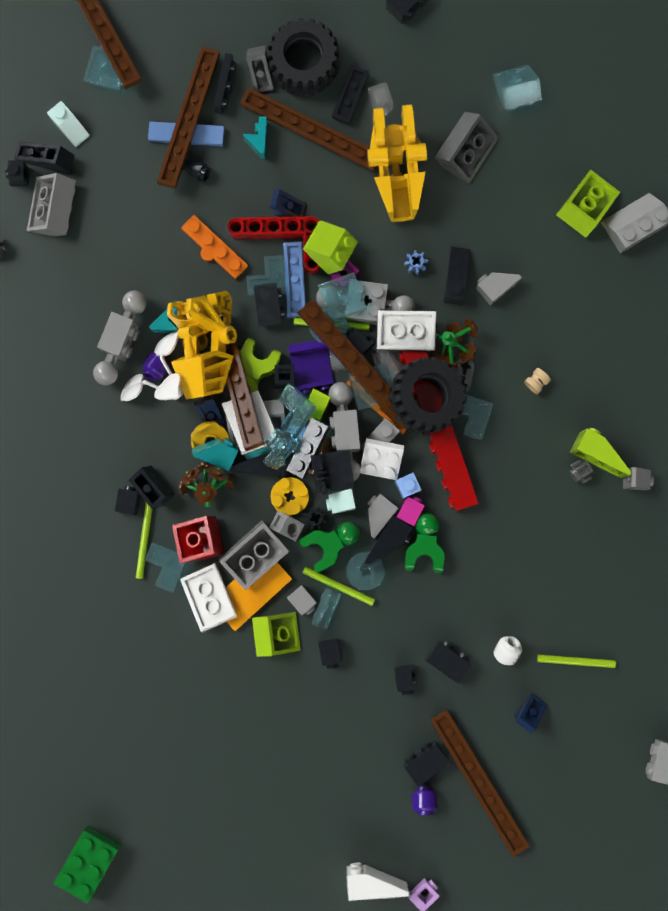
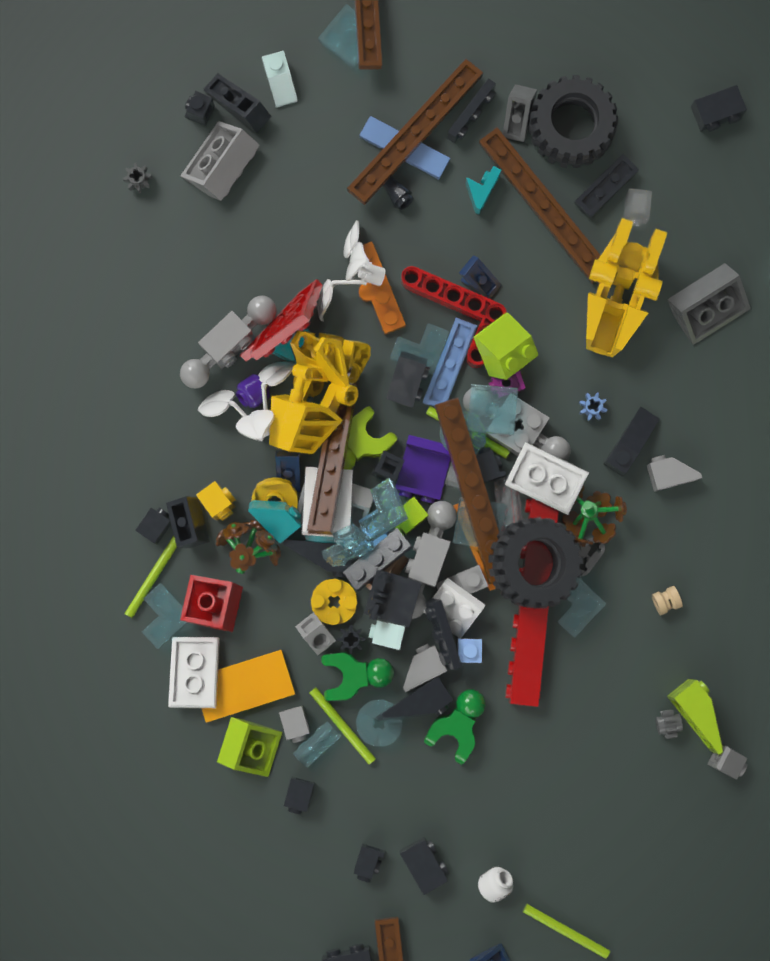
camera: 25 degrees right, 0 degrees up
(155, 309) = (292, 318): none -> red wing
(166, 460) = (217, 501): none -> yellow brick
(201, 237) = (358, 262): none -> white plant
(253, 555) = (264, 648): light grey slope -> none
(382, 481) = (442, 634): none -> black plate
(410, 510) = (460, 679): dark pink brick -> none

